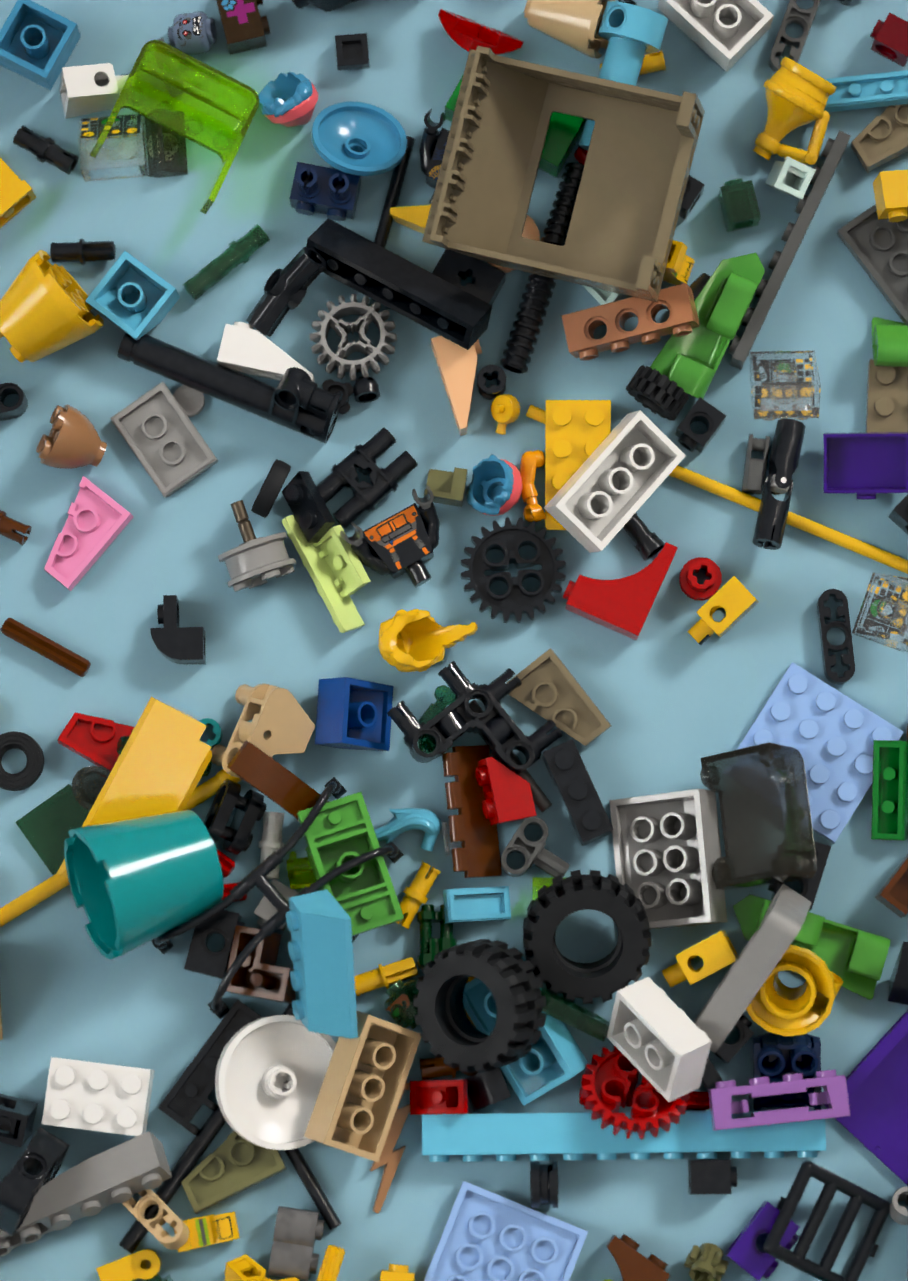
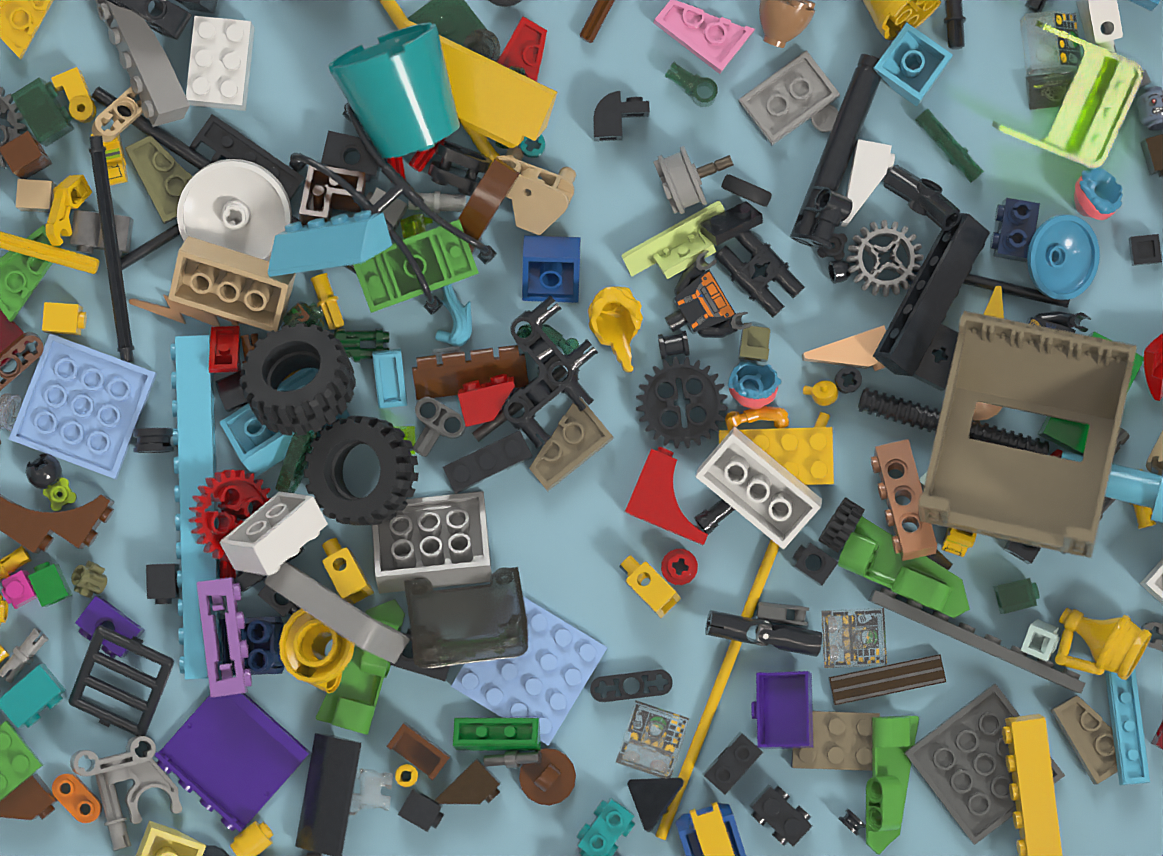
camera: 85 degrees right, 5 degrees up
(144, 548) = (692, 83): none -> clear green pin
(315, 1228) = (111, 248): none -> black piece
(417, 893) = (398, 326): yellow pin -> none
(446, 577) = (673, 345): none -> black bush
(831, 350) = (887, 679): none -> dark brown tile

